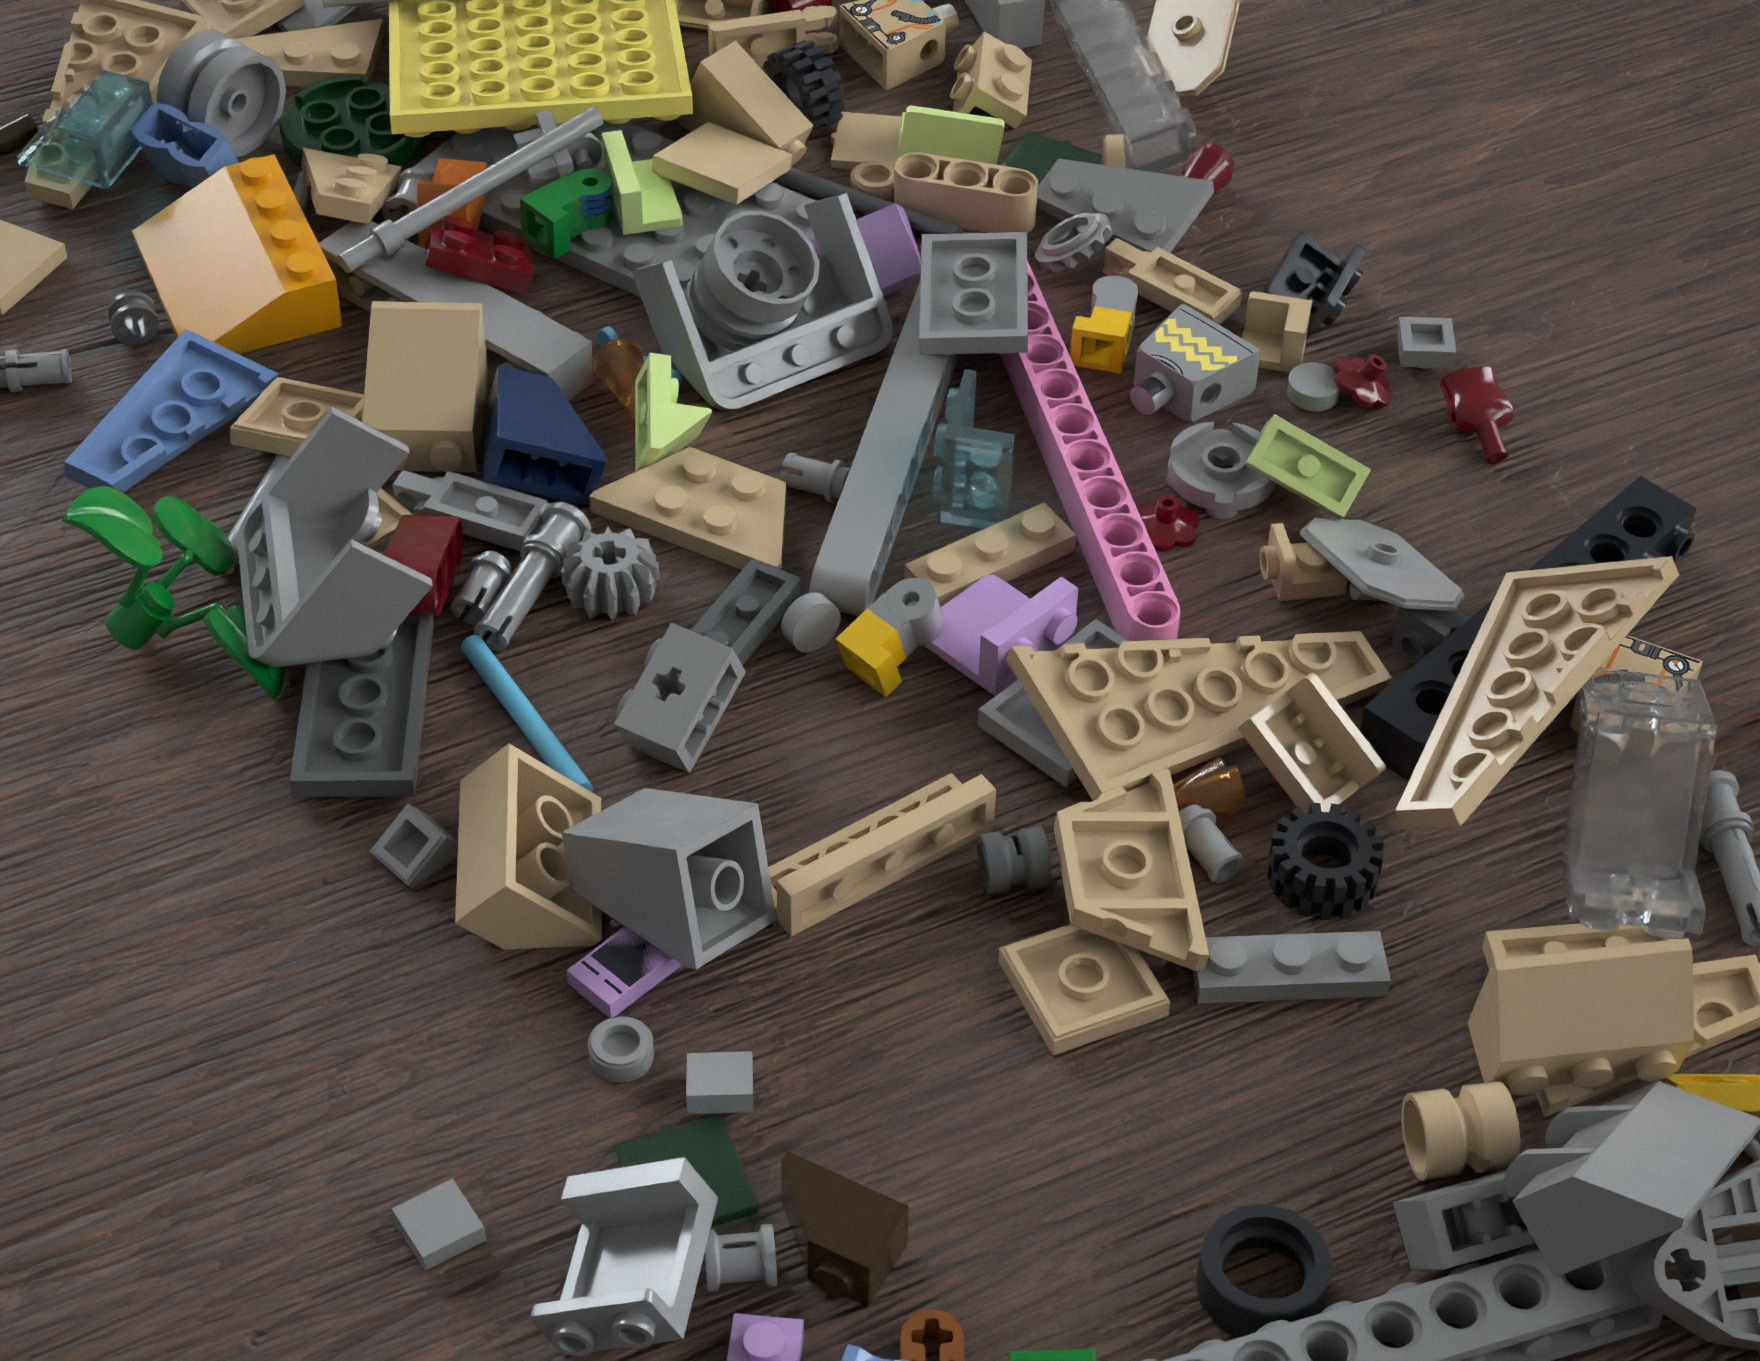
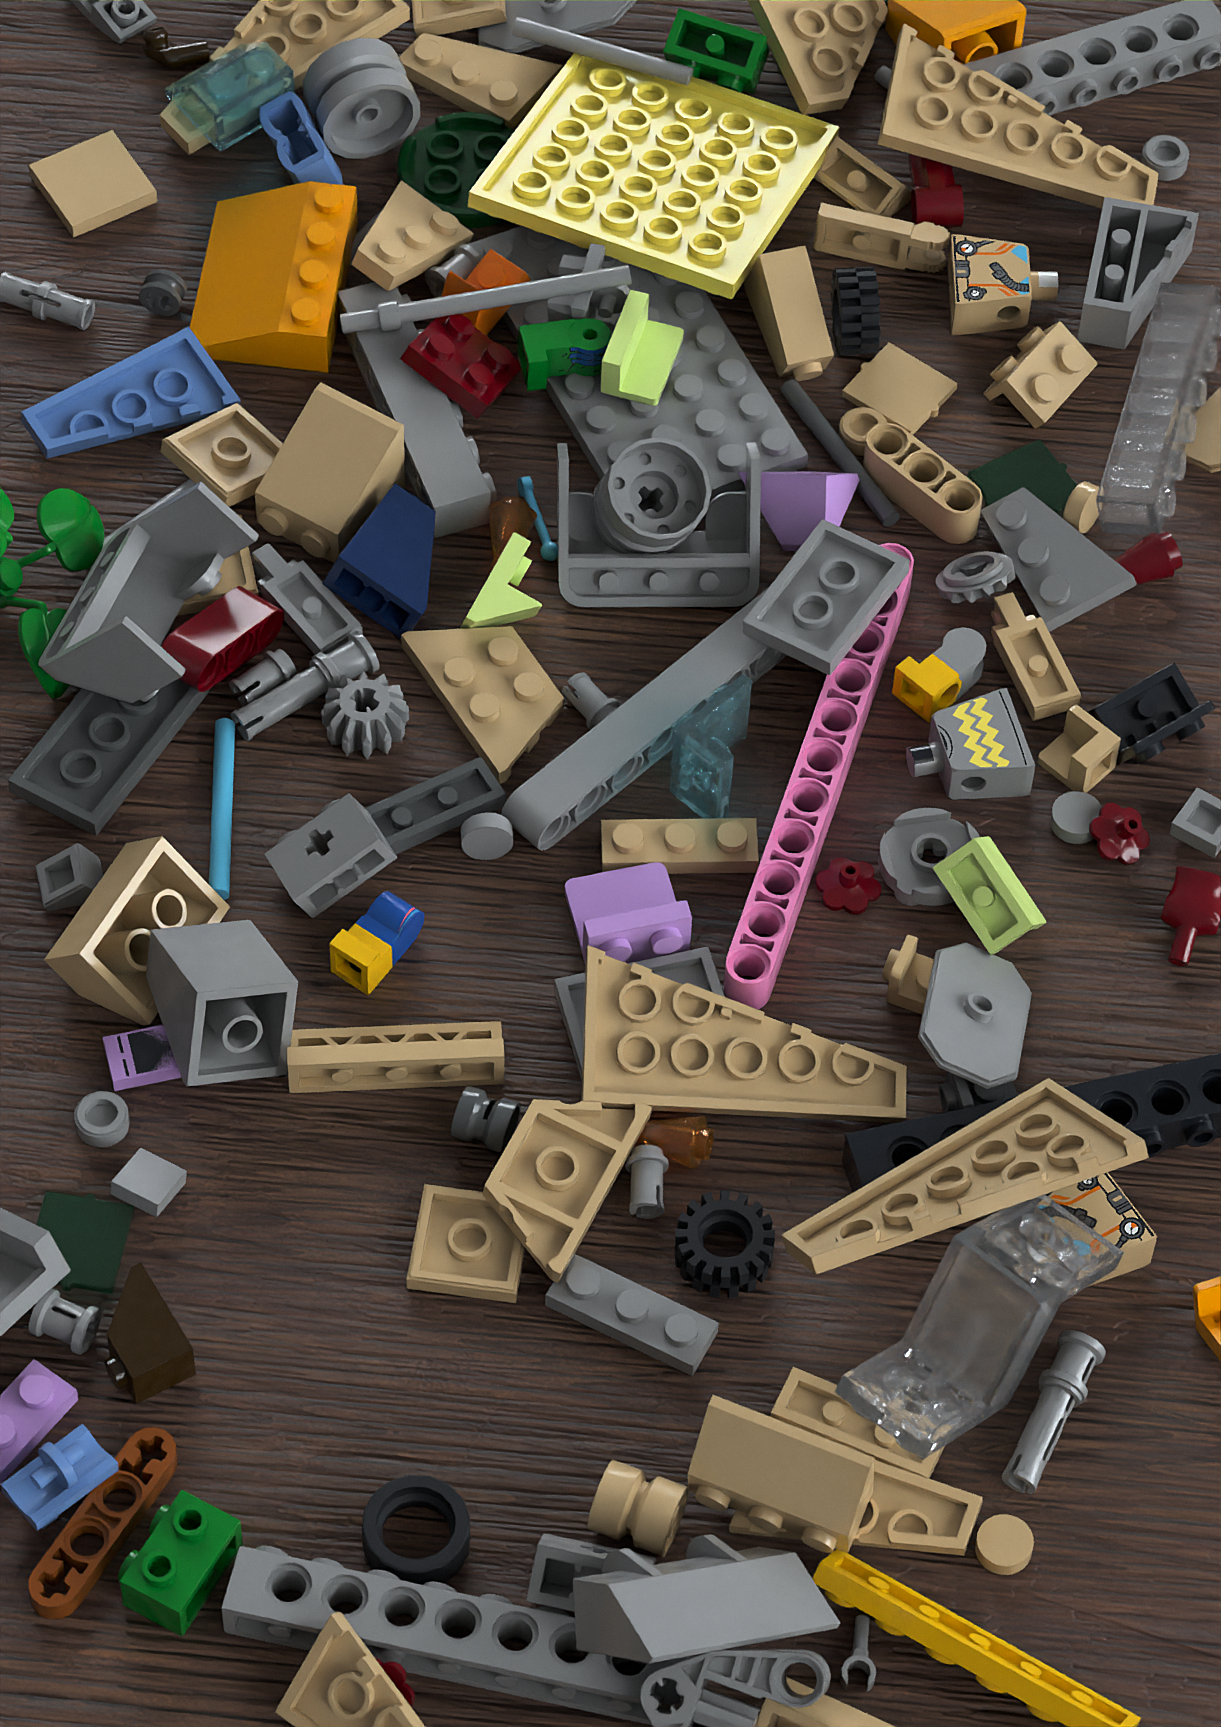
camera: 30 degrees right, 10 degrees up
(721, 163) = (727, 359): tan tile -> none
(776, 755) = (375, 941): none -> leg
(890, 632) = (537, 878): leg -> none
(950, 134) = (953, 418): yellowish green panel -> none
(1312, 746) = (777, 1146): tan bracket -> none

